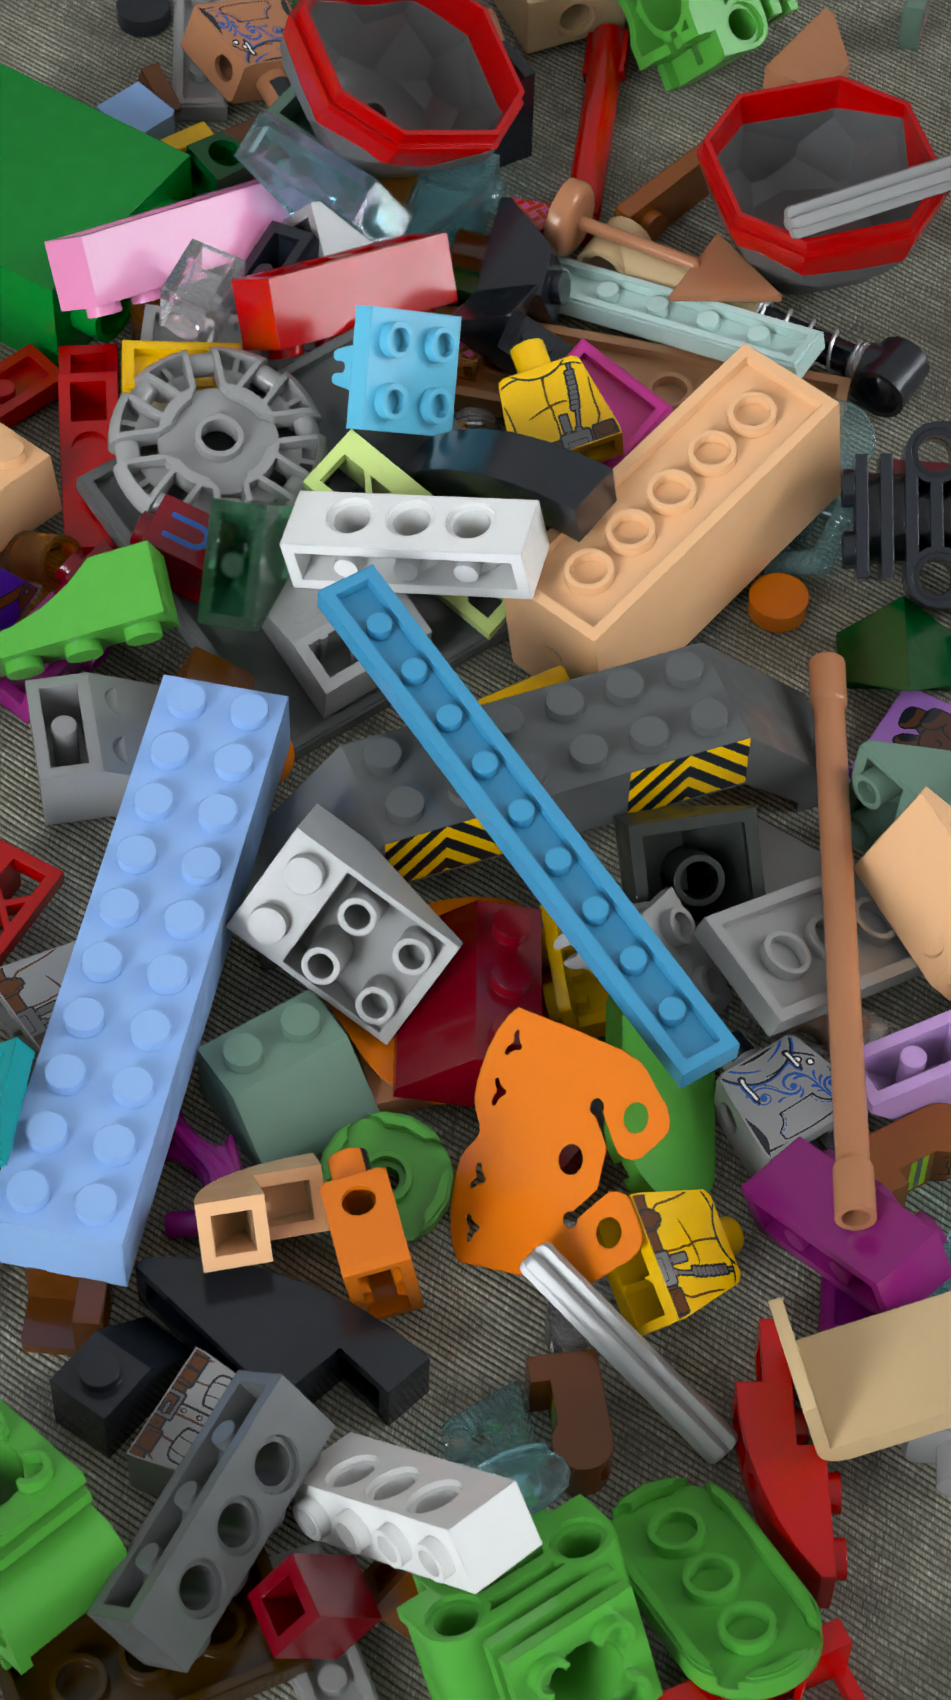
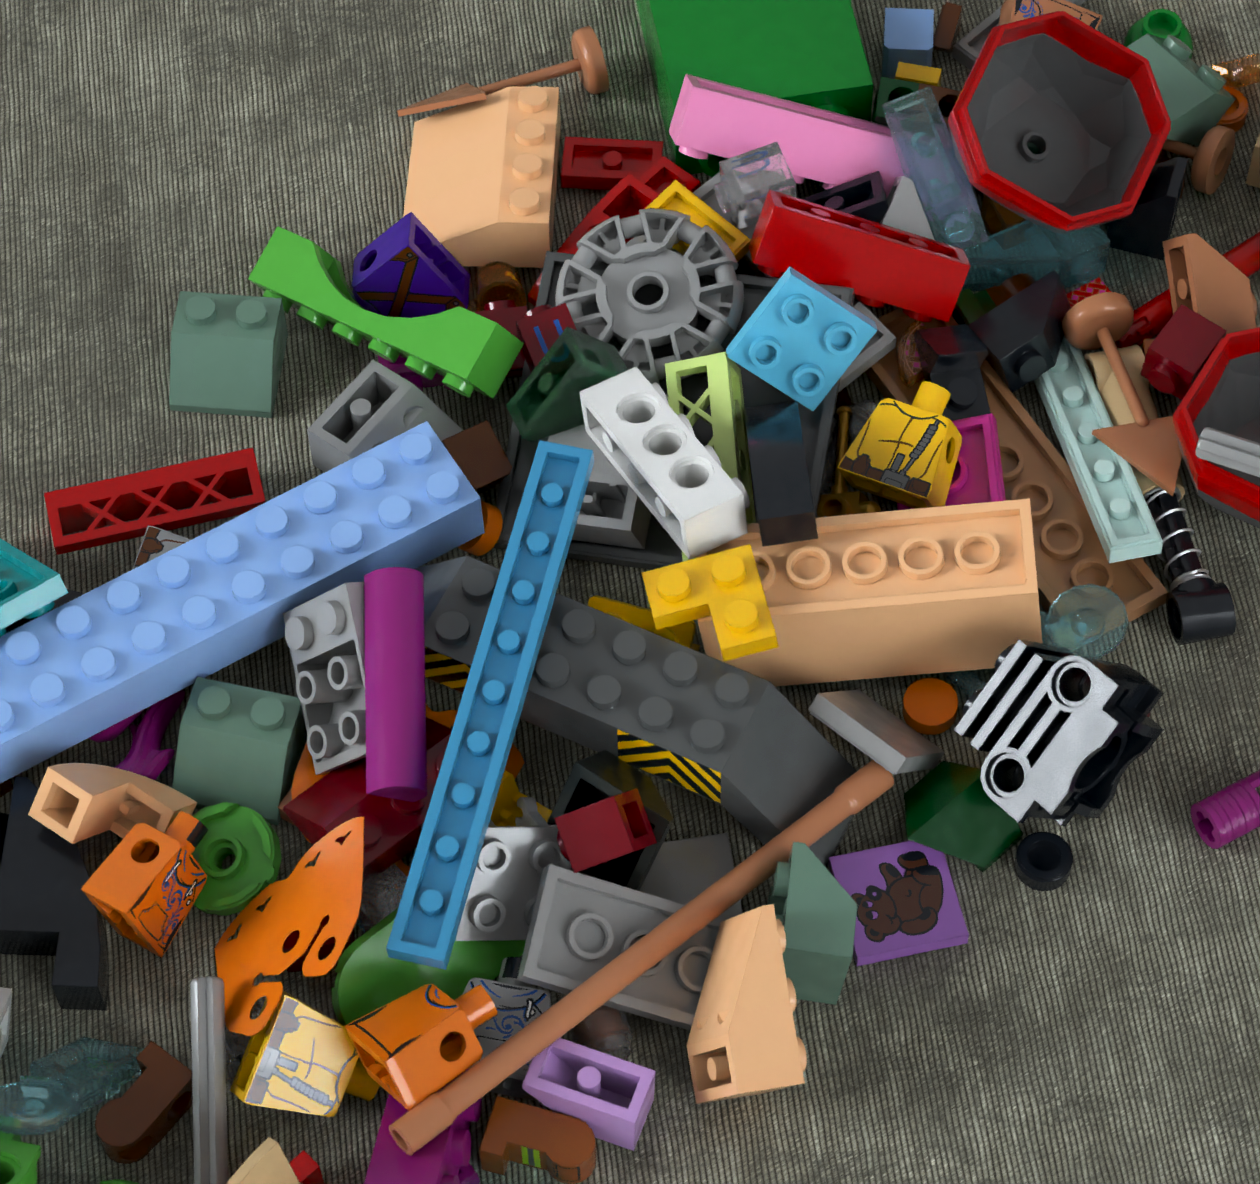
camera: 50 degrees right, 5 degrees up
(421, 880) = (395, 684): none -> magenta brick
(591, 595) = (720, 587): none -> yellow plate
(616, 138) = (1208, 283): none -> nougat slope
(669, 187) = (1180, 351): none -> dark red brick
(715, 857) = (604, 830): none -> dark red brick
(767, 1142) = (421, 1040): none -> orange torso
(784, 641) = (875, 731): none -> light grey tile

